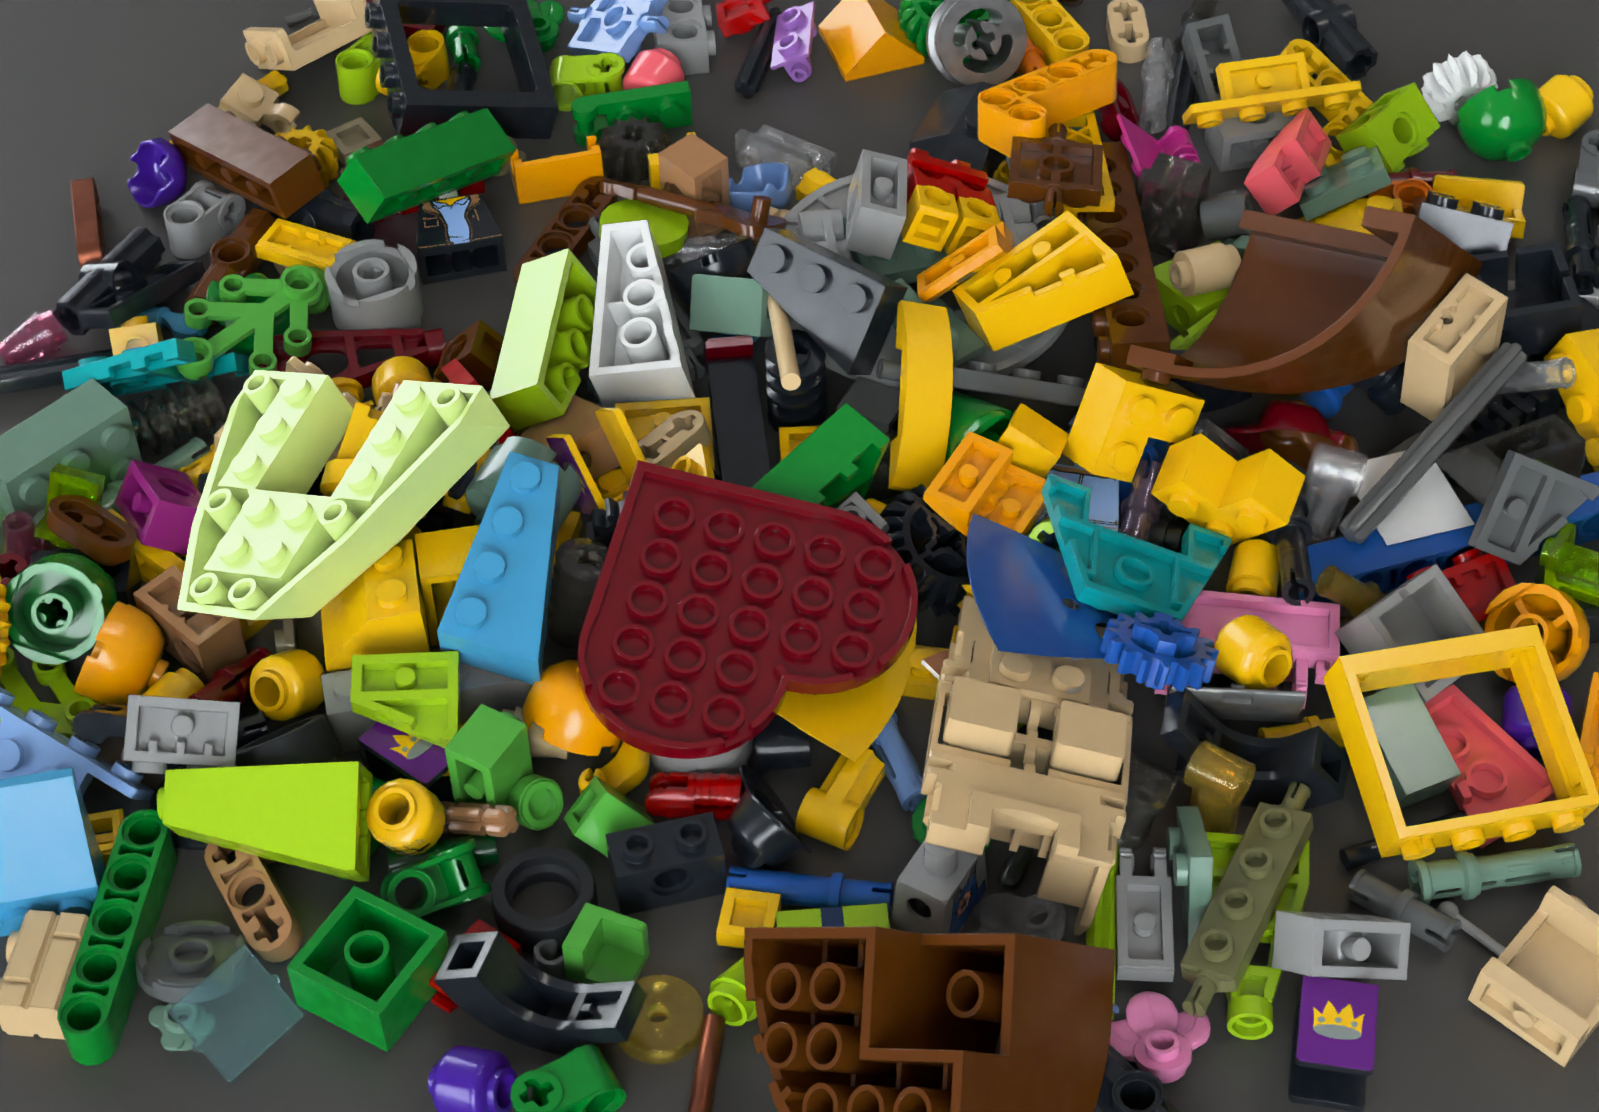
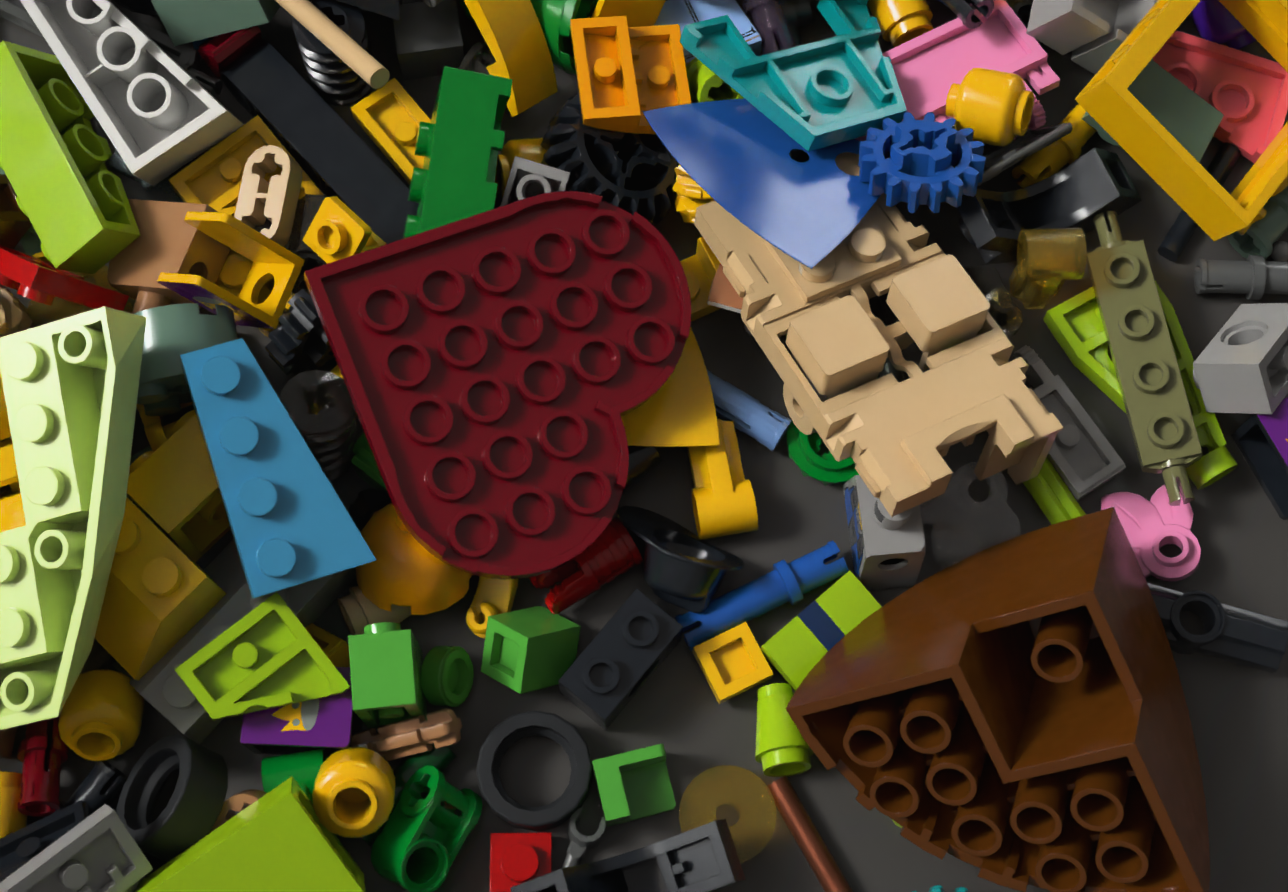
camera: 40 degrees left, 25 degrees up
(1192, 866) = (1078, 356): sand green wing -> none

